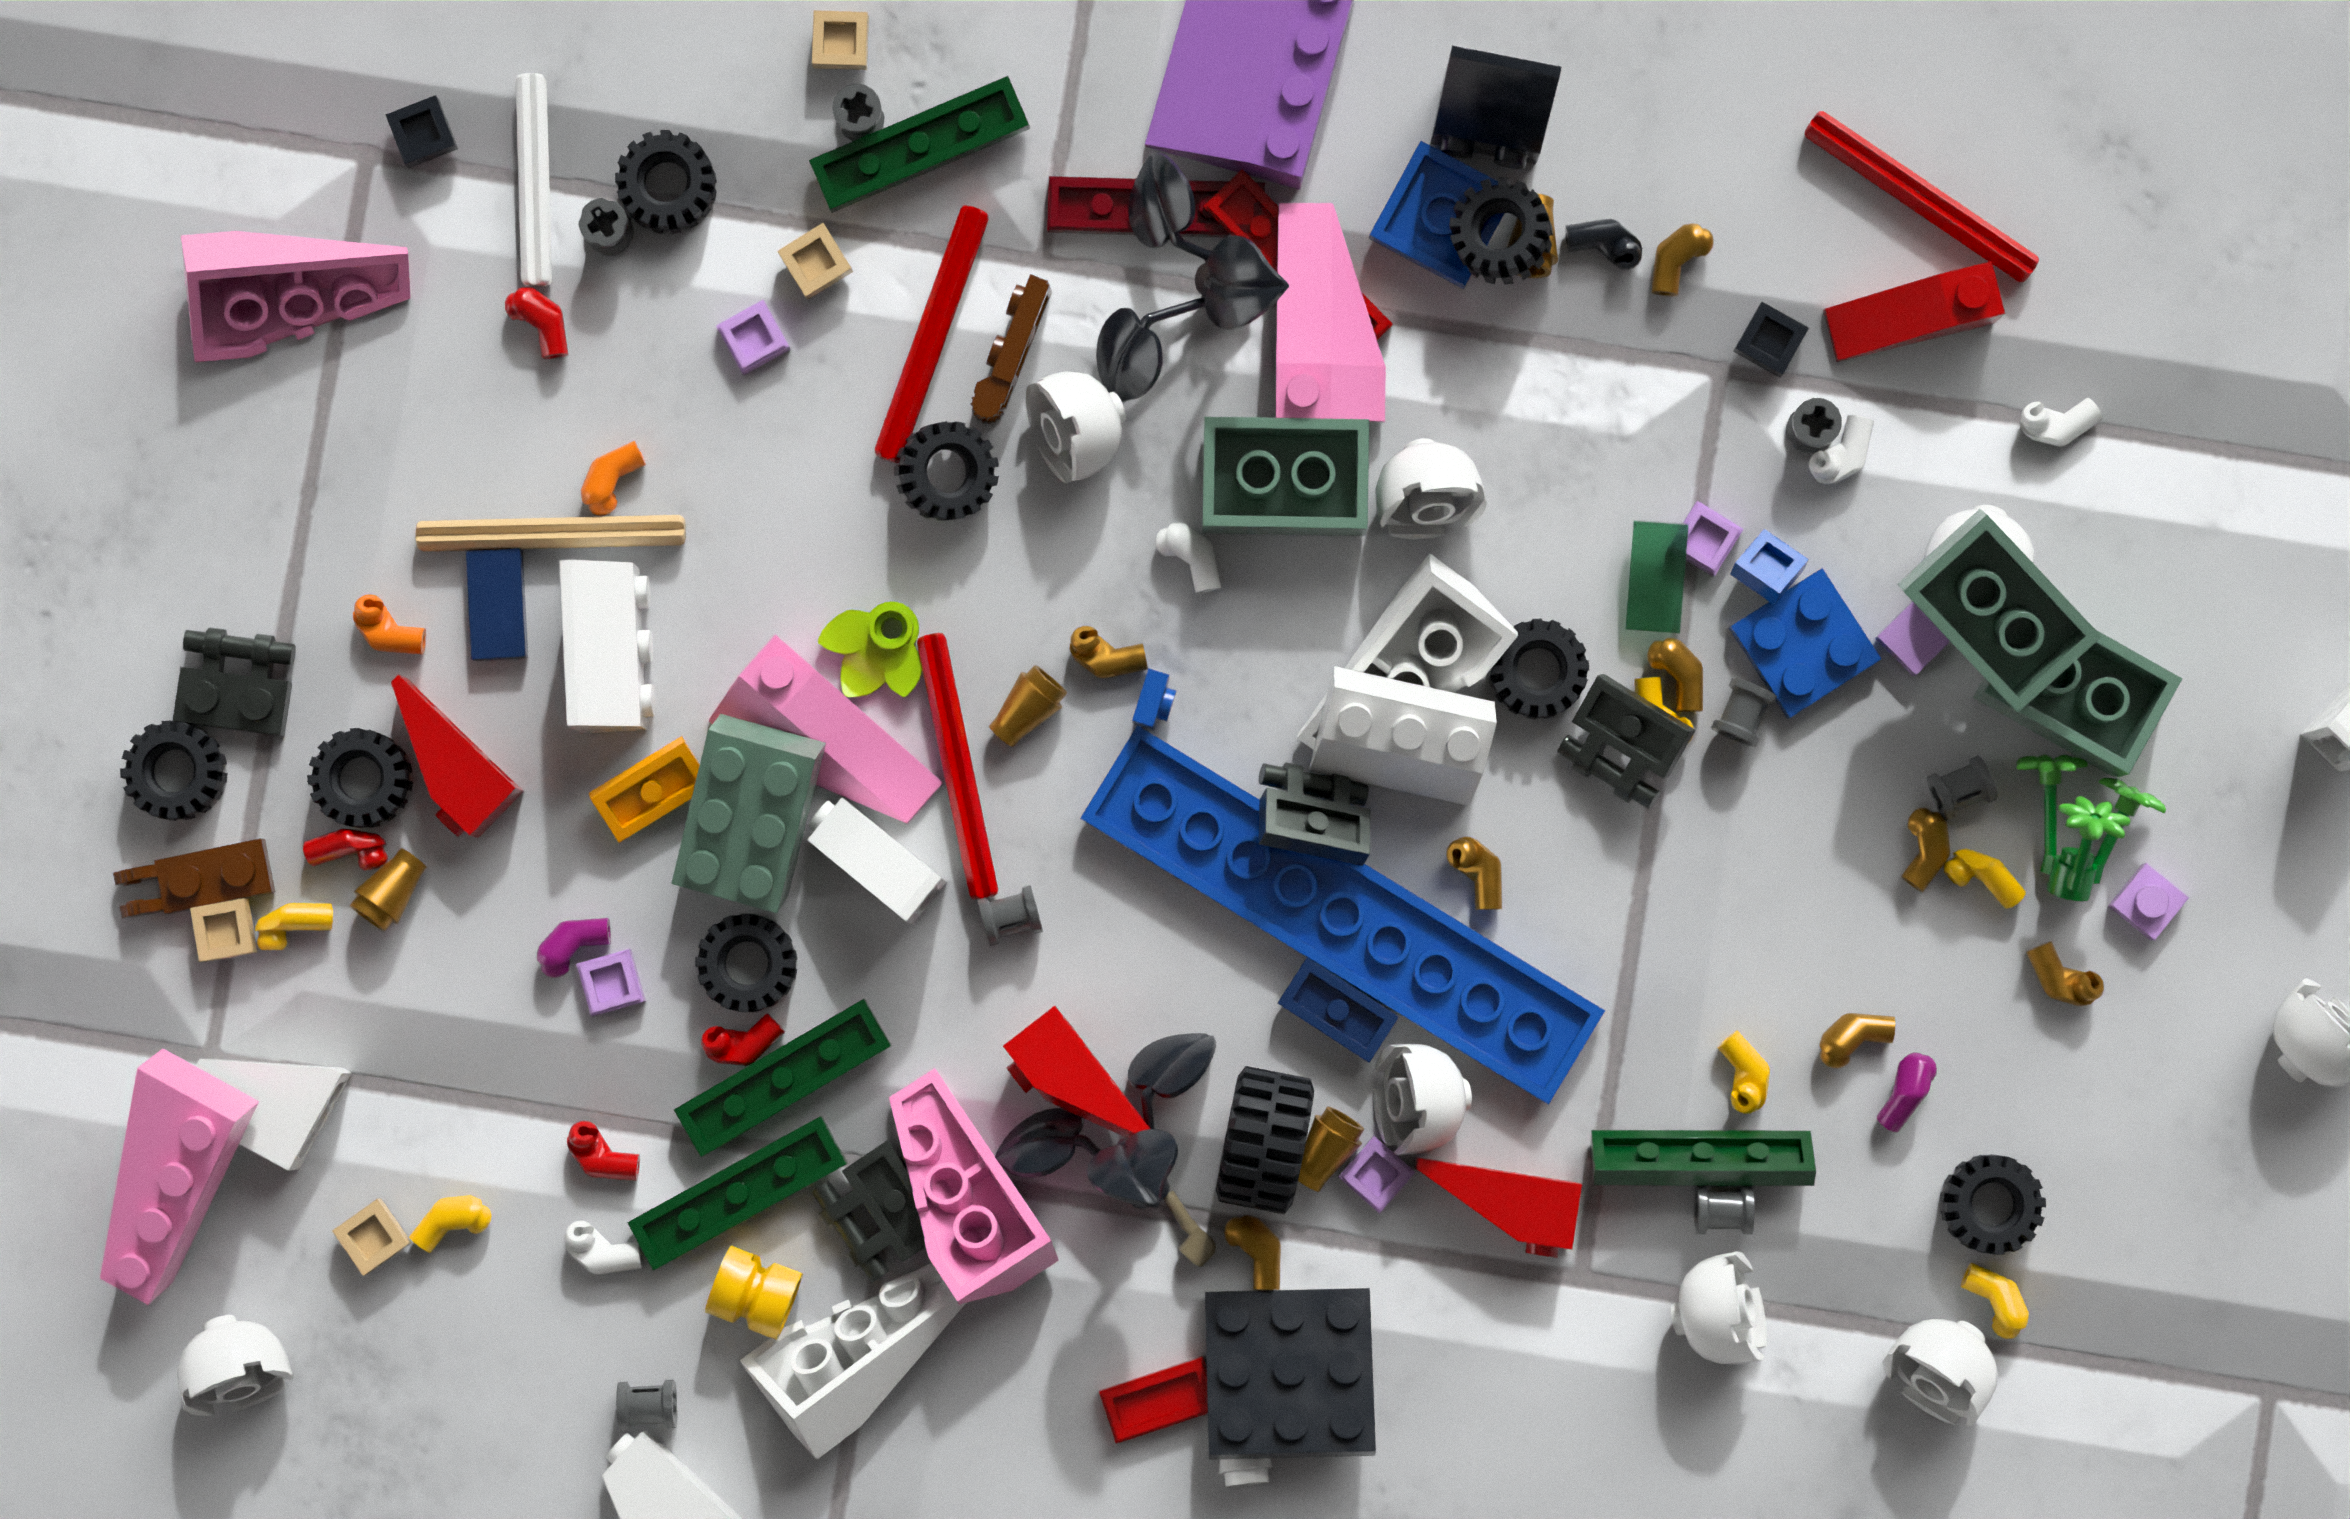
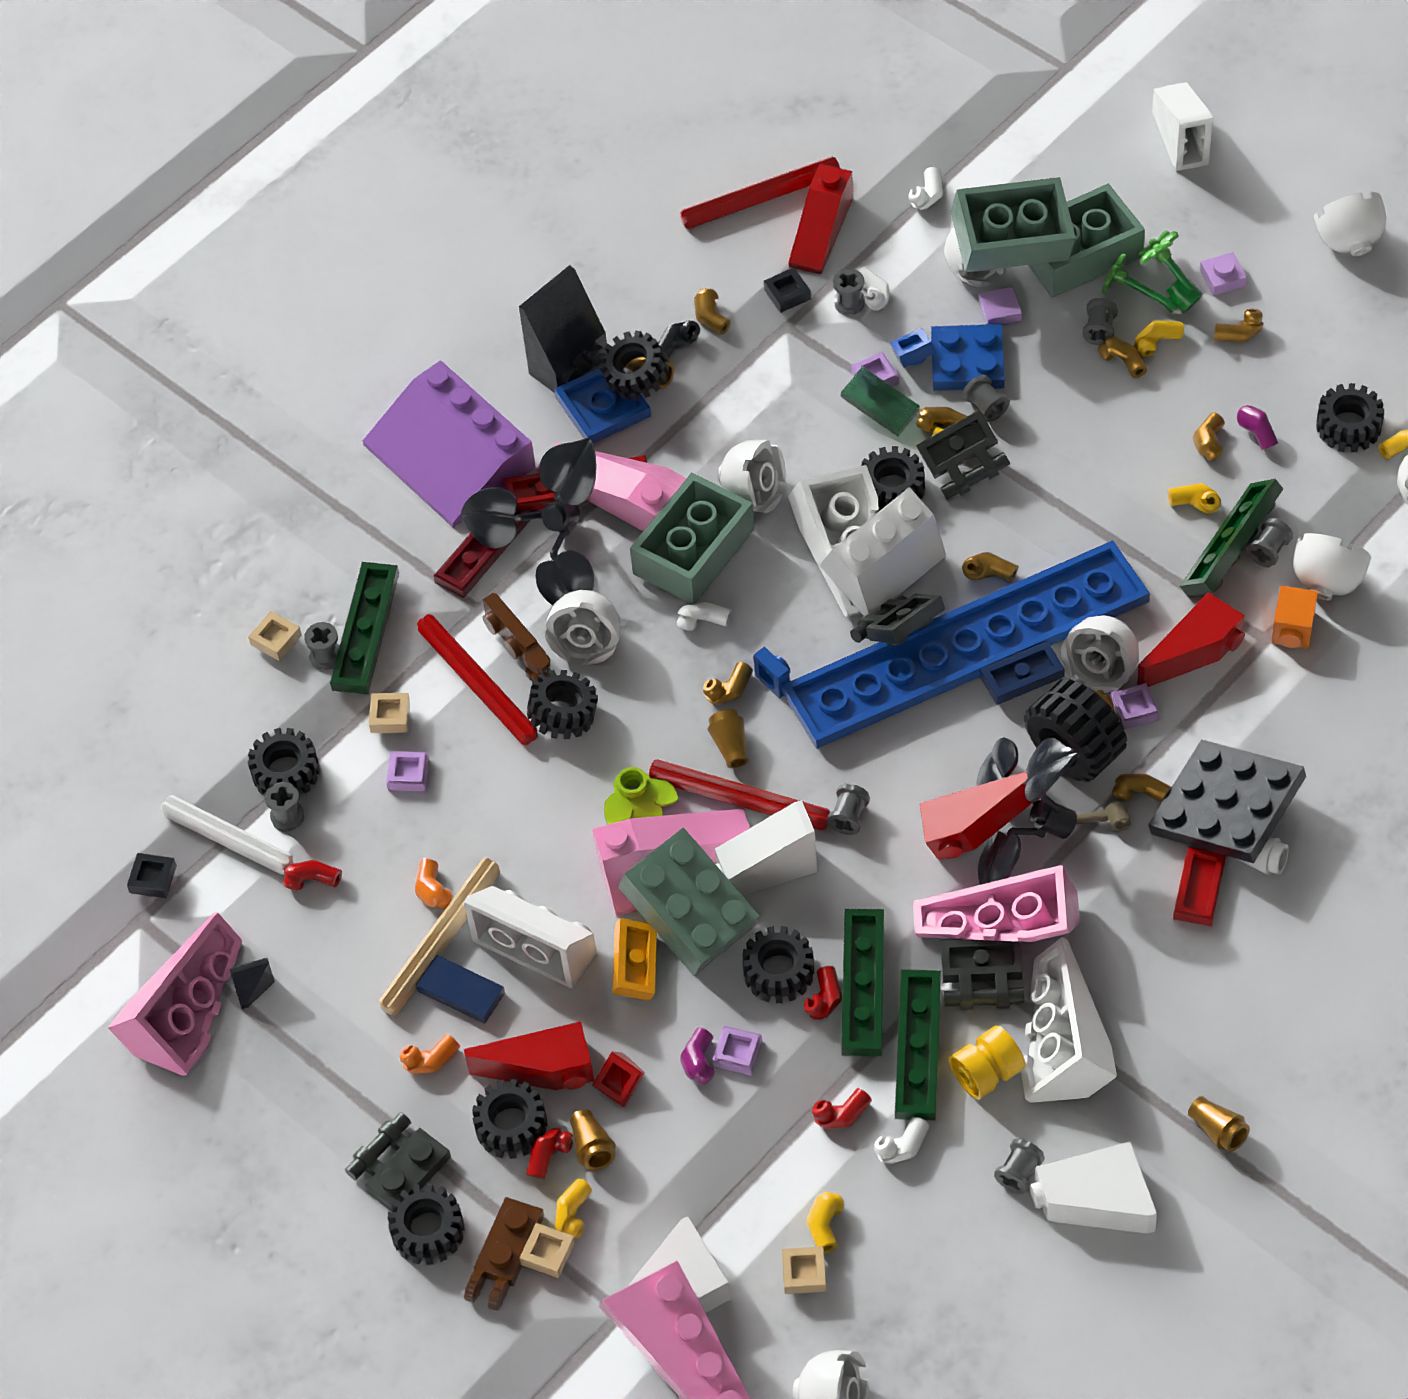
camera: 55 degrees left, 30 degrees down
(350, 353) = (251, 980): none -> black slope
(493, 868) = (618, 1078): none -> red slope
(1619, 1306) = (1294, 617): none -> orange brick

